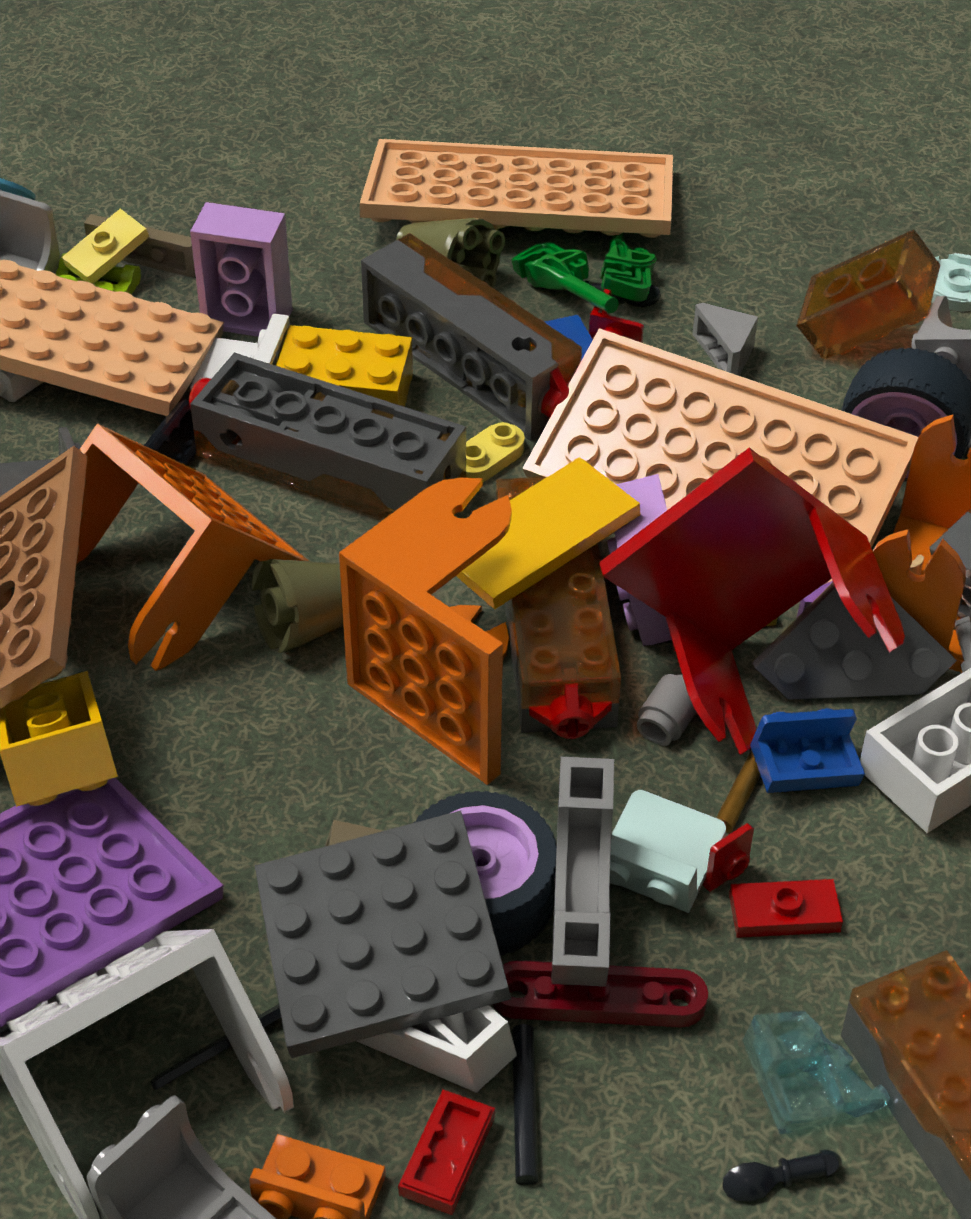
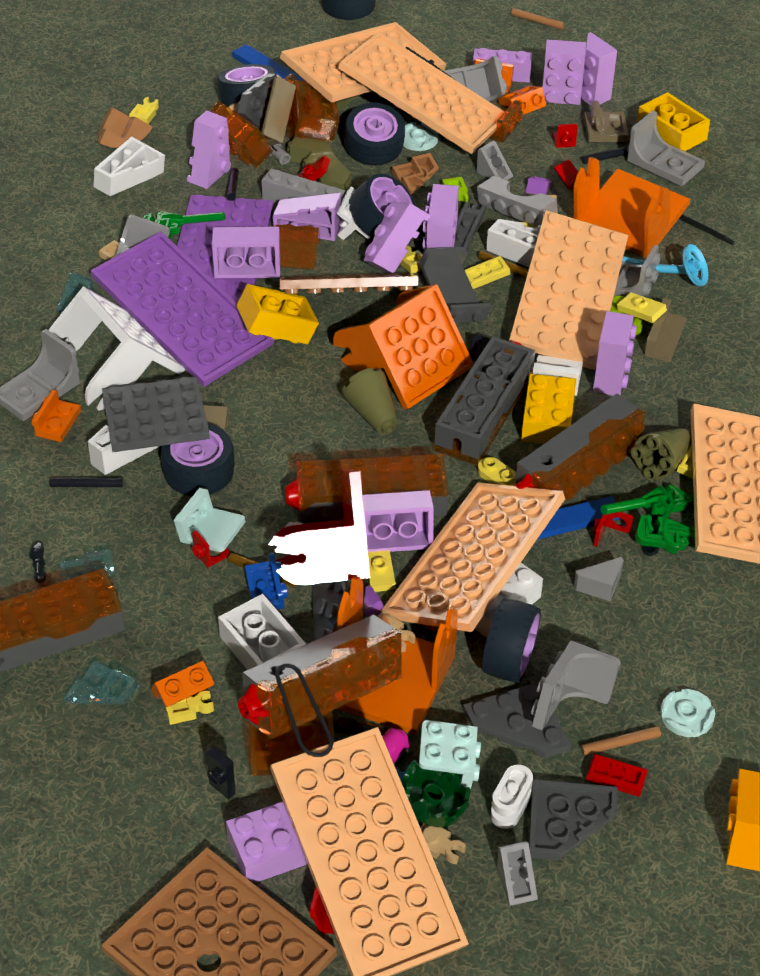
camera: 90 degrees right, 0 degrees up
(410, 648) = (306, 418): orange piece -> none
(447, 1152) = (64, 455): red plate -> none
(548, 529) = (392, 461): yellow tile -> none
(583, 872) = (149, 480): light grey arch -> none
(629, 997) = (134, 504): dark red plate -> none
(785, 908) = (178, 576): red plate -> none
(869, 295) = (626, 633): clear orange brick -> none

